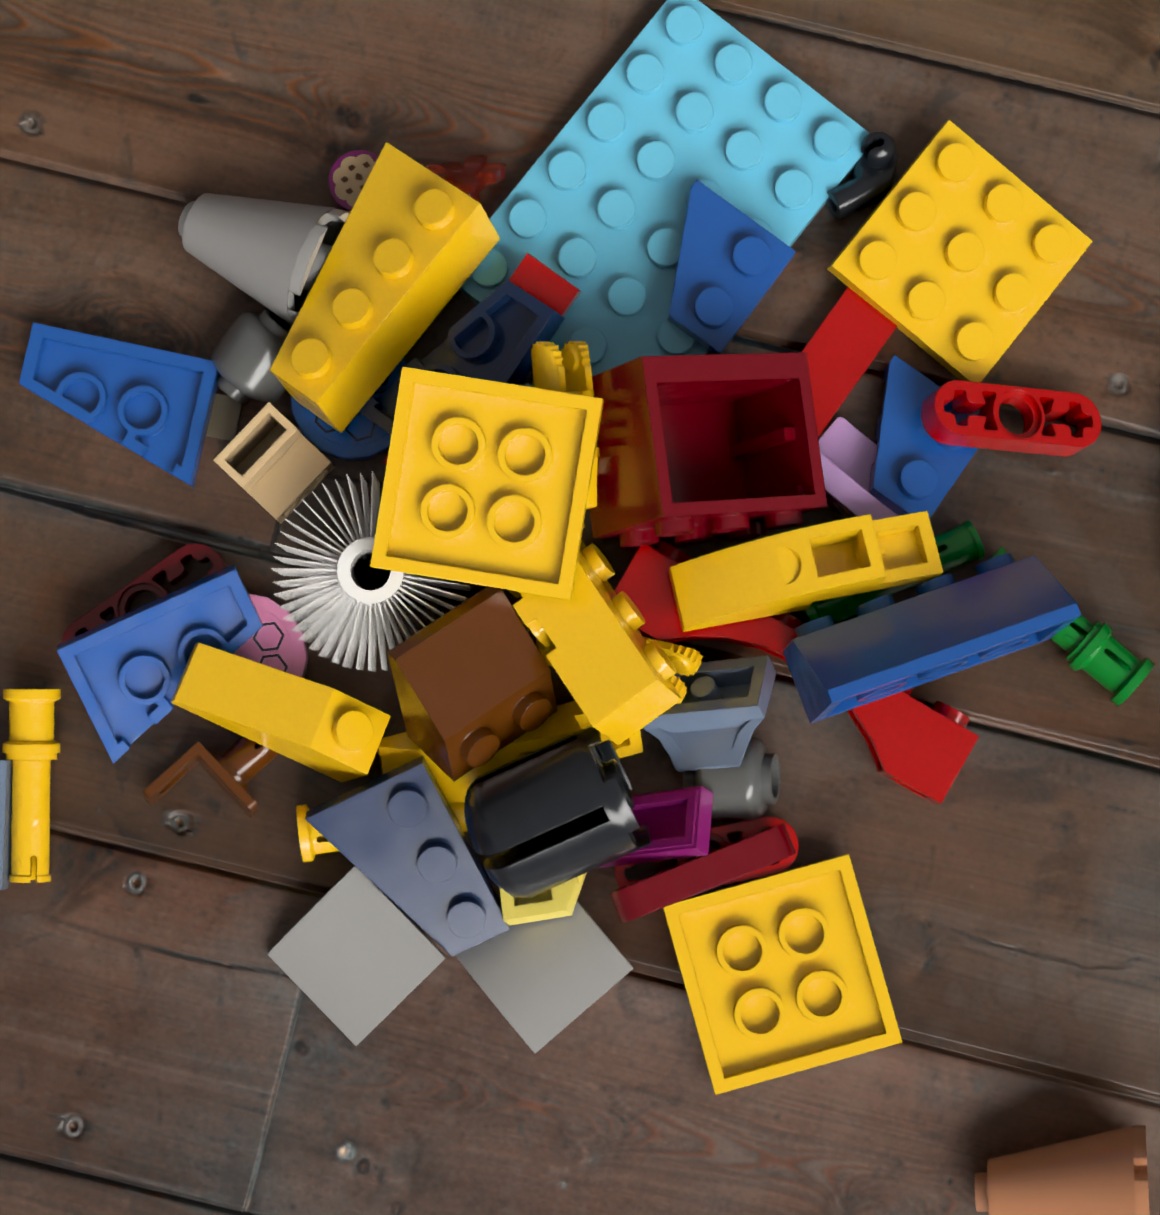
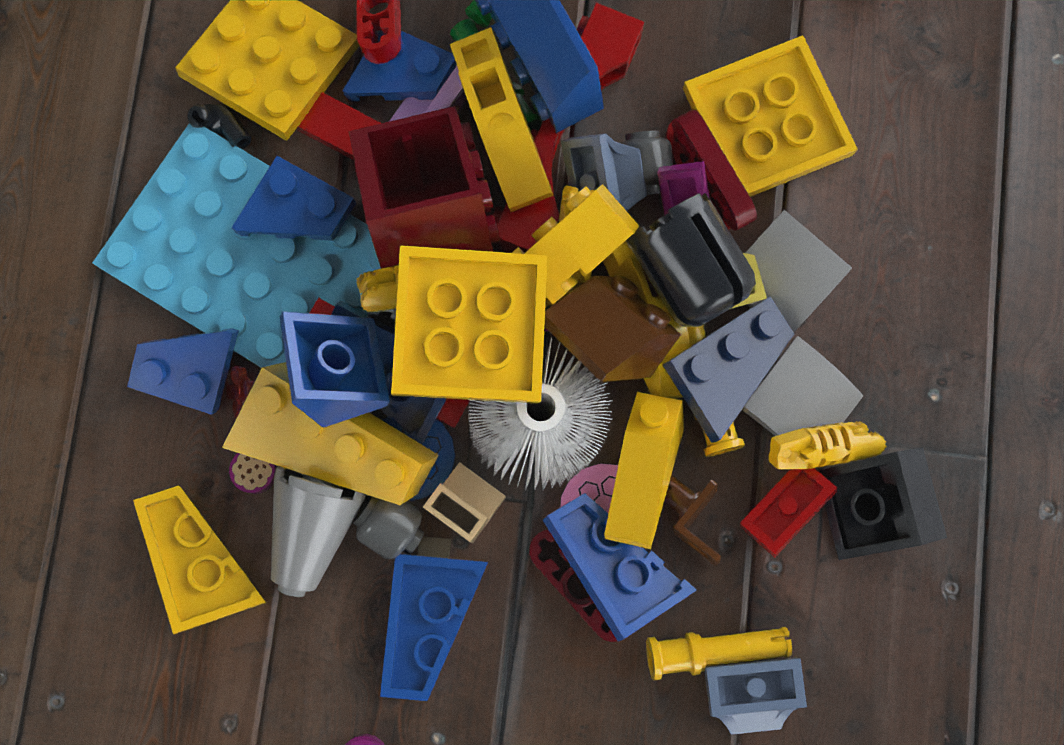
camera: 100 degrees left, 5 degrees down
(196, 1042) = (883, 504): none -> black slope
(210, 909) = (787, 508): none -> red plate
(244, 90) = (191, 562): none -> yellow wing
(285, 972) = (825, 446): none -> yellow hinge
(460, 296) = (333, 366): none -> blue slope
(511, 101) = (185, 368): none -> blue wing

